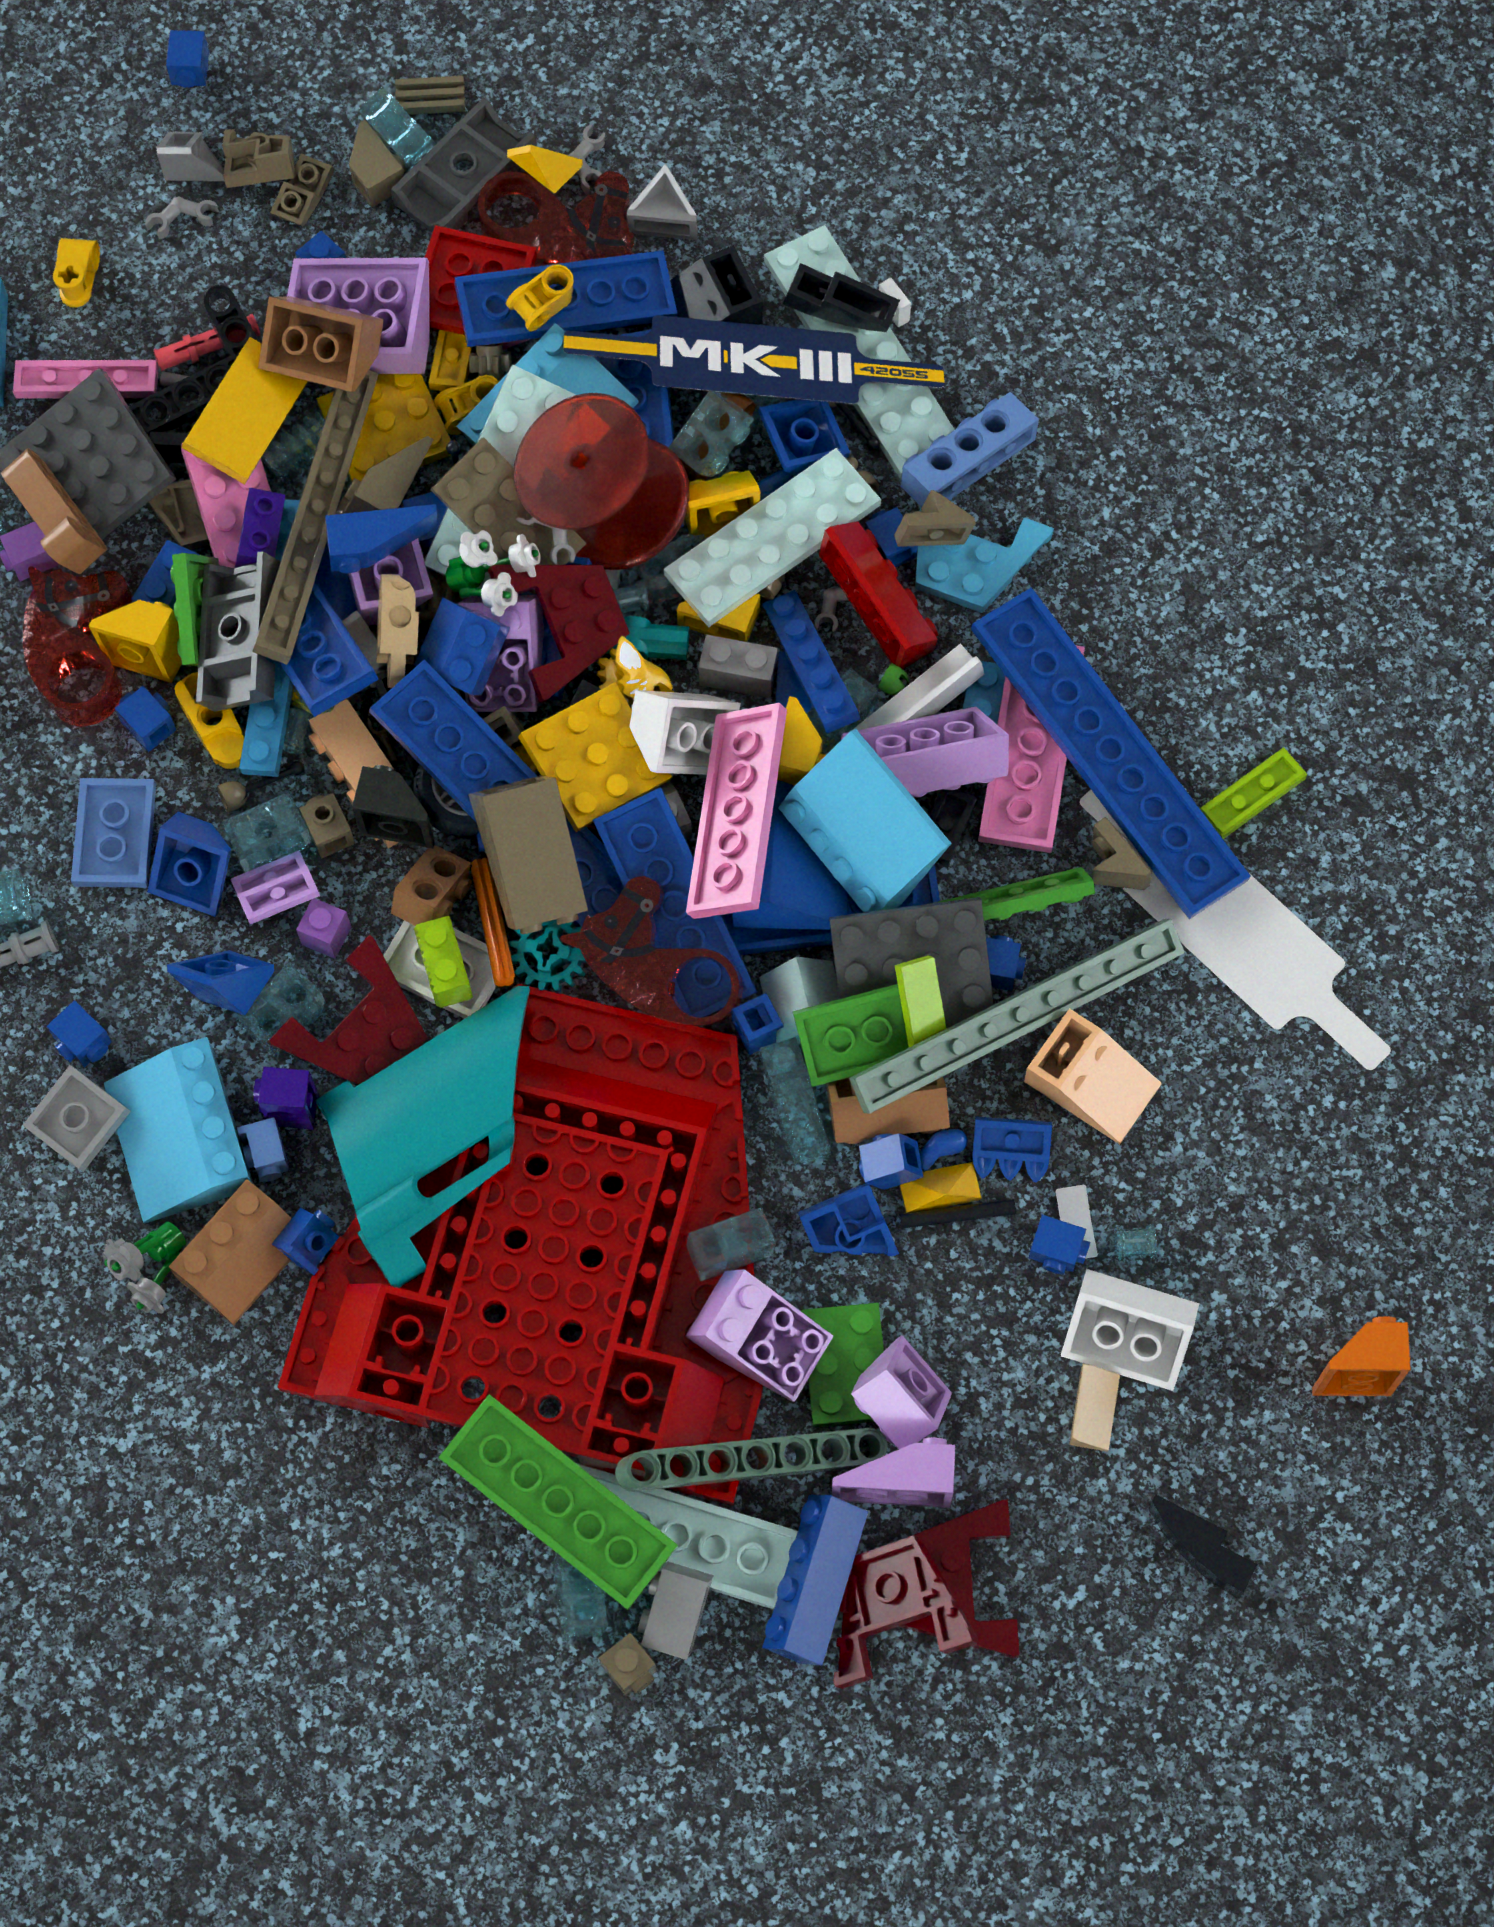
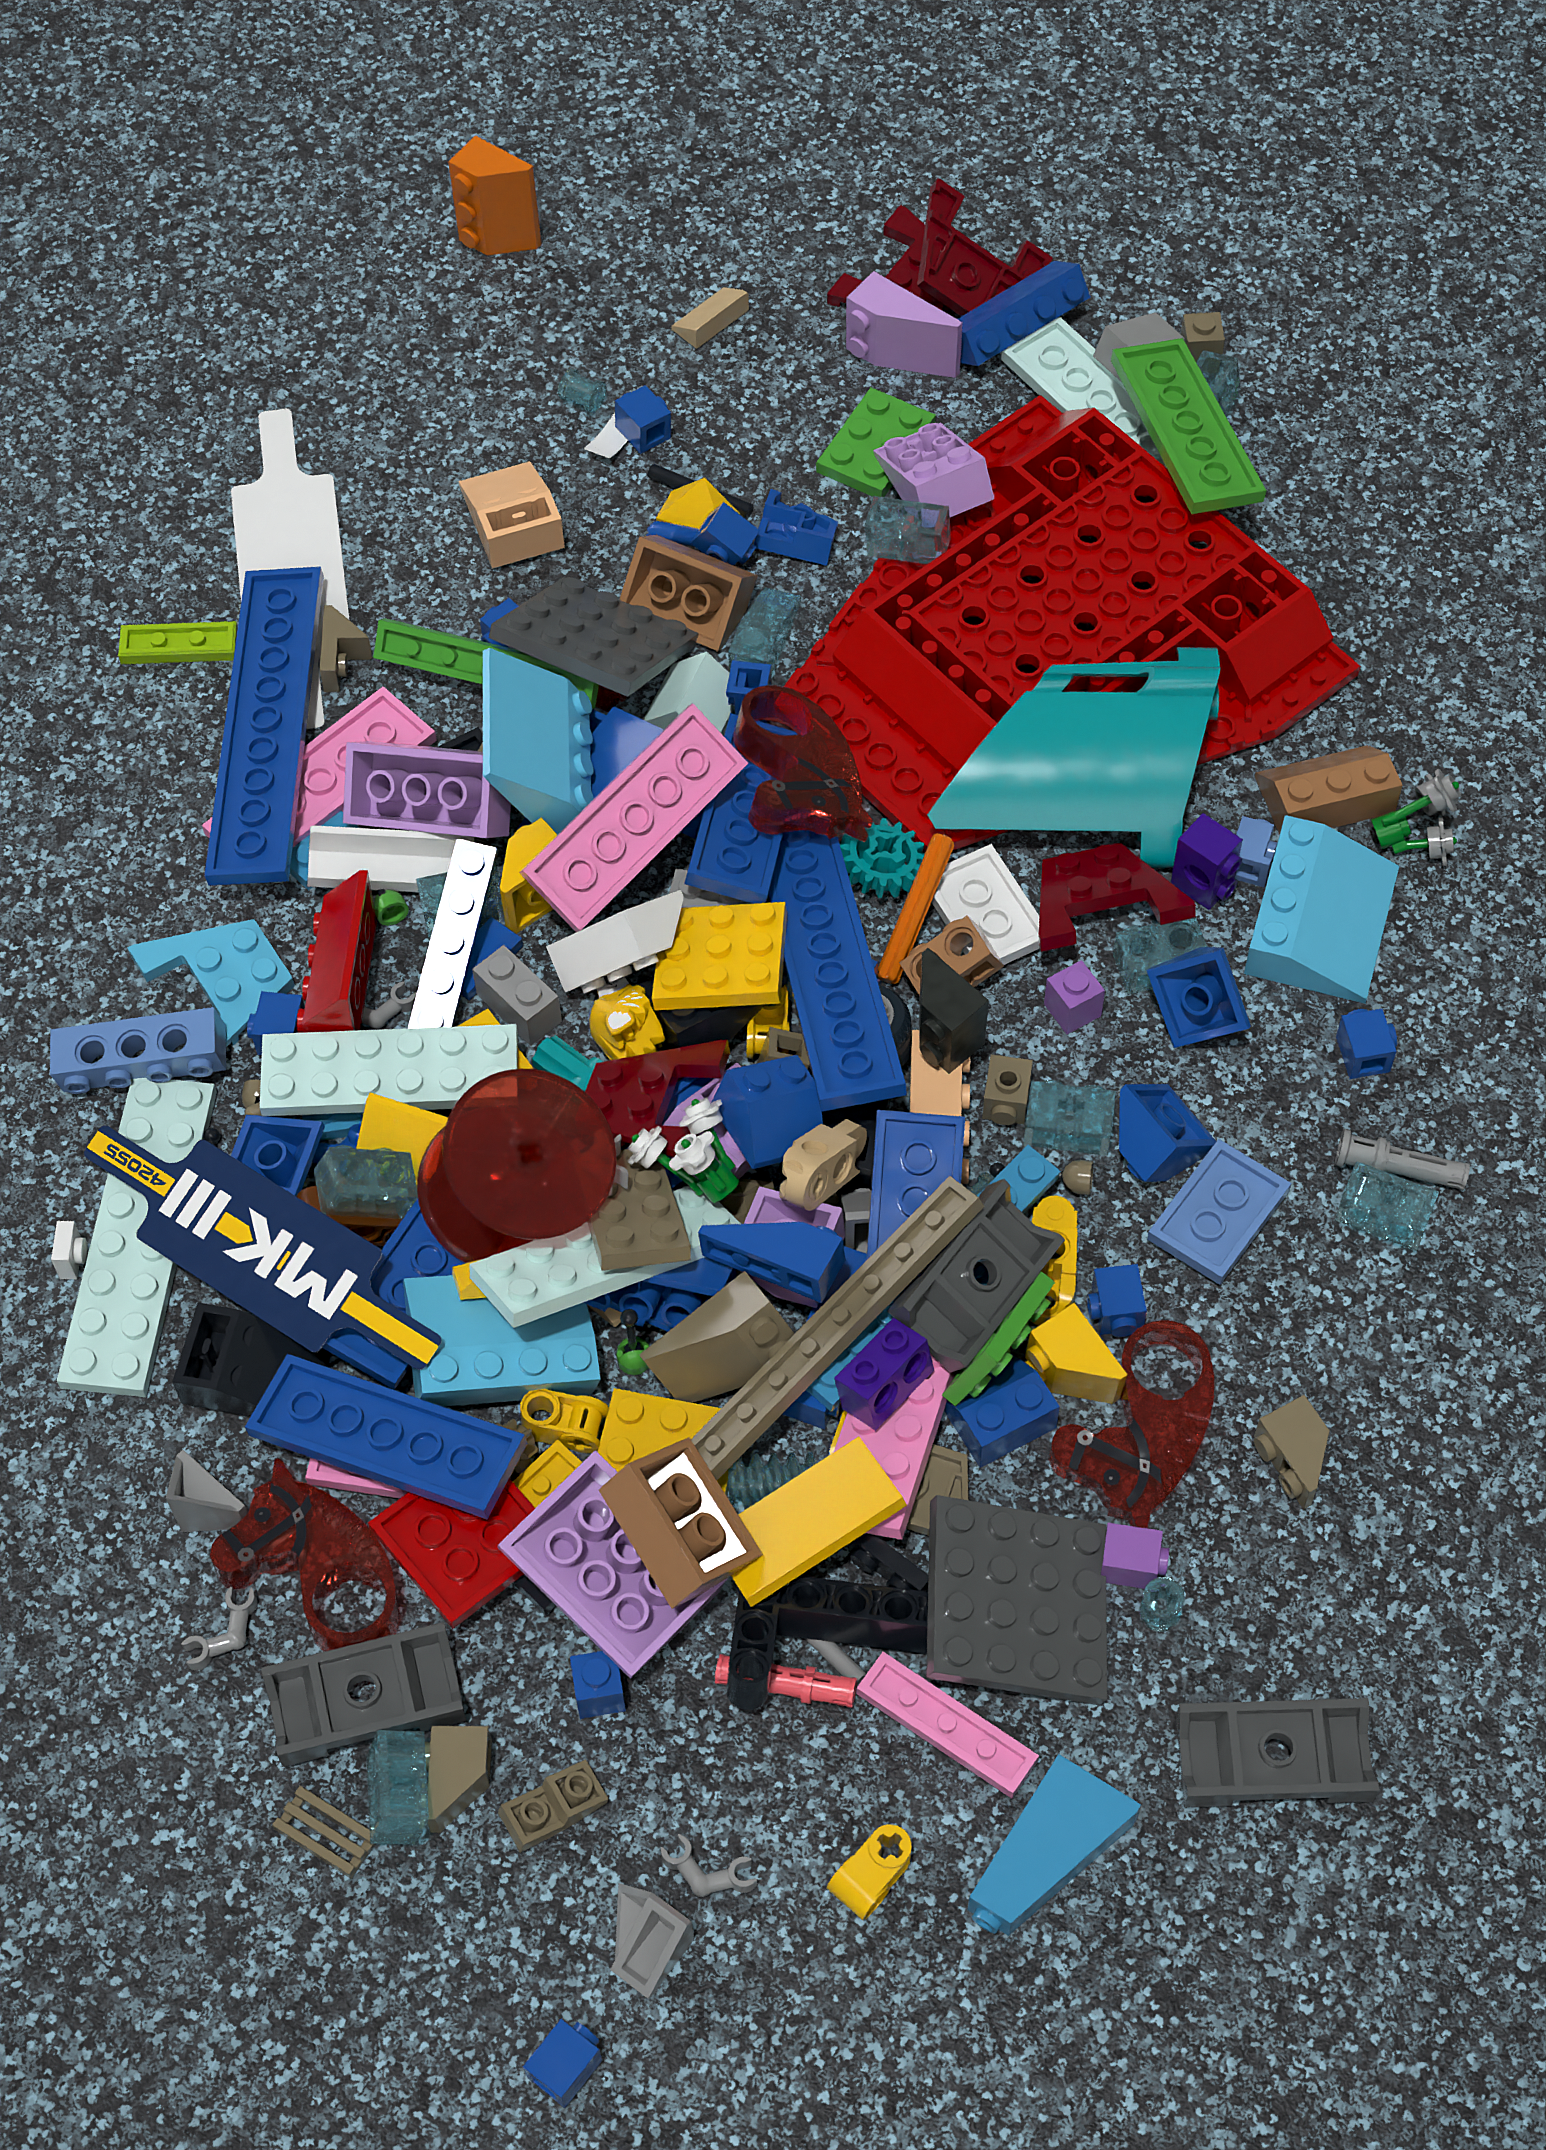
camera: 145 degrees left, 10 degrees down
(67, 532) = (1083, 1543): medium nougat beam -> none
(76, 1118) = (1411, 972): light grey plate -> none
(256, 158) = (577, 1876): dark tan slope -> none
(275, 887) = (1097, 1047): lavender slope -> none
(307, 1239) = (1263, 753): blue brick -> none
(443, 962) = (989, 882): lime brick -> none
(530, 852) = (844, 900): dark tan slope -> none
(539, 302) = (416, 1421): yellow piece -> none
(546, 166) = (277, 1622): yellow slope -> none
(734, 1463) = (1011, 384): sand green beam -> none
(840, 300) = (121, 1267): black slope -> none
(851, 1034) = (675, 619): bright green plate -> none
(902, 1394) = (853, 377): lavender slope -> none
(920, 999) = (612, 589): lime tile -> none
(936, 524) = (232, 982): dark tan slope -> none
(1011, 1143) = (618, 507): blue plate -> none
(1016, 1016) = (545, 560): sand green plate -> none
(1130, 1329) = (636, 339): white slope -> none
(1201, 1546) = (707, 189): black slope -> none

